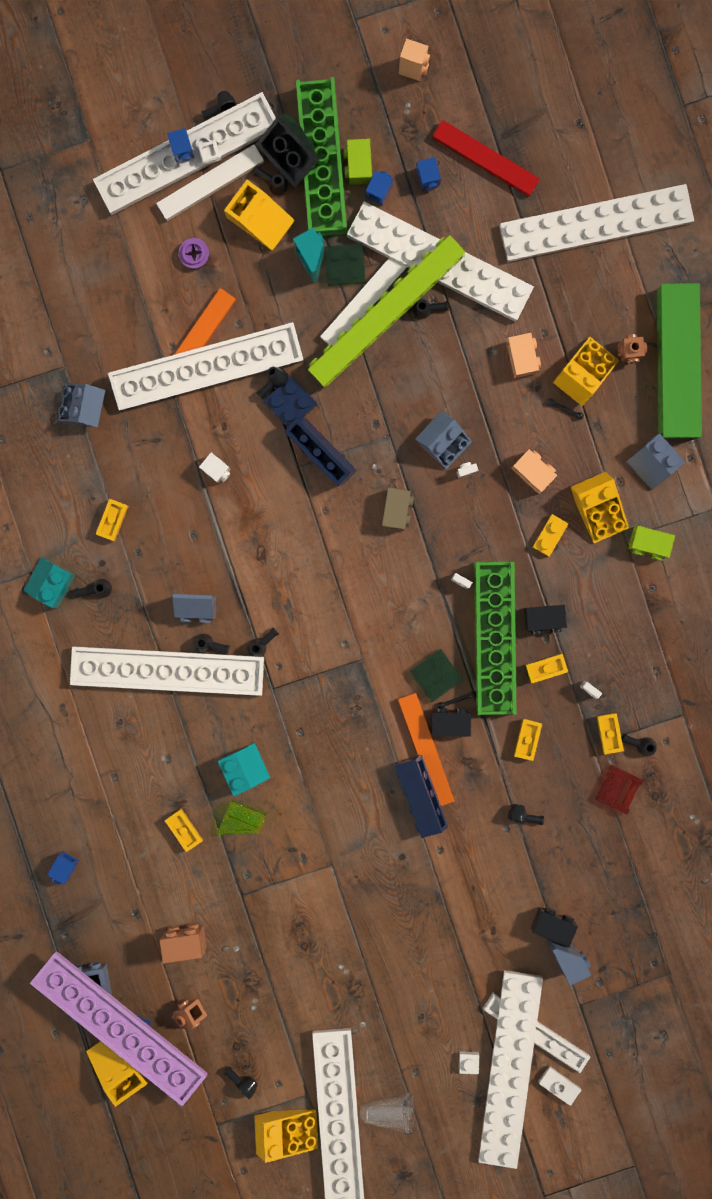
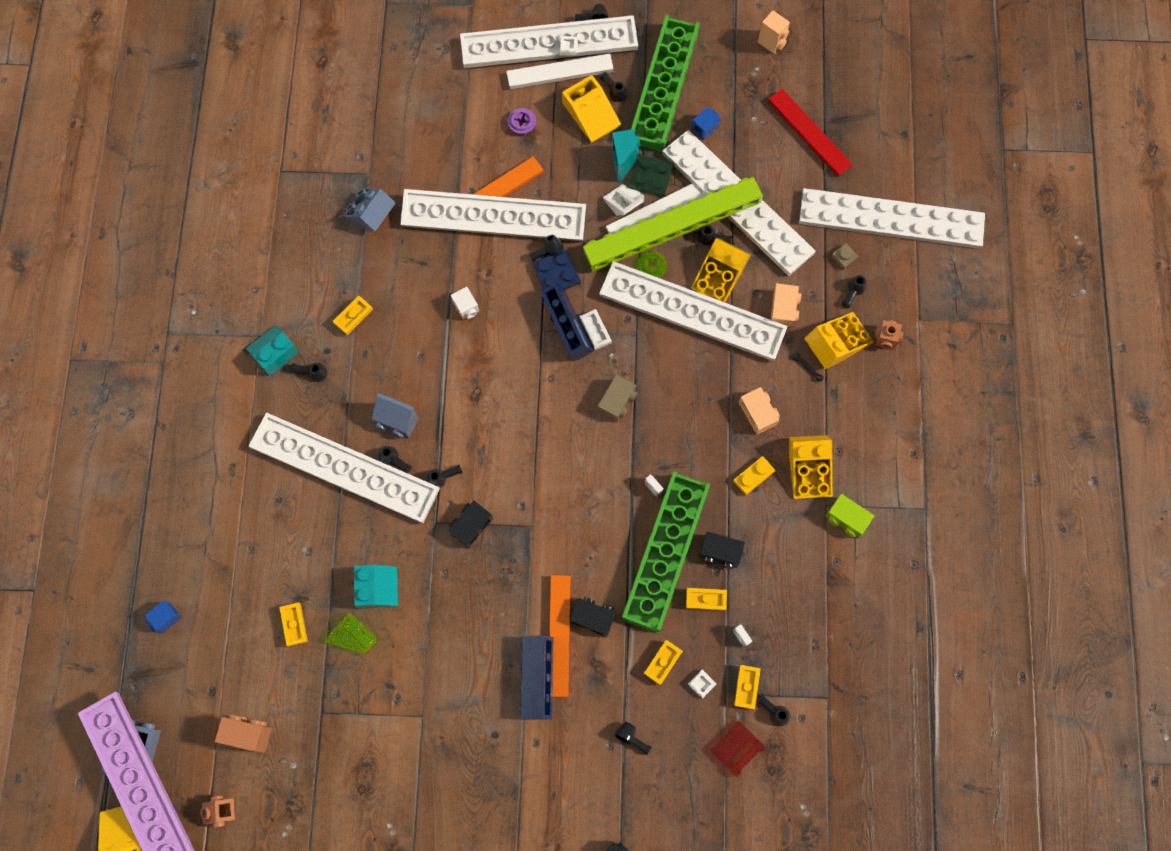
camera: 15 degrees right, 15 degrees down
(181, 145) = (546, 31): blue brick -> none
(288, 148) = (637, 63): black slope -> none
(306, 680) = (470, 523): none -> black brick
(328, 301) = (623, 199): none -> white slope
(350, 447) = (595, 329): none -> white plate
(359, 161) = (696, 96): lime brick -> none
(383, 367) = (661, 264): none -> clear neon green gear
(428, 174) = (753, 126): blue brick -> none
(436, 393) = (693, 311): none -> white plate
(436, 675) = (596, 567): clear green plate -> none
(442, 705) = (621, 598): black hinge -> none
(443, 439) = (684, 353): sand blue slope -> none
(449, 342) = (720, 270): none -> yellow slope
(467, 469) = (696, 387): white plate -> none
(563, 281) = (844, 256): none -> dark tan plate
(568, 744) = (702, 684): none -> white tile
(584, 313) = (855, 289): none -> black bar
(655, 461) = (878, 442): sand blue slope -> none
(679, 360) = (929, 361): bright green tile -> none

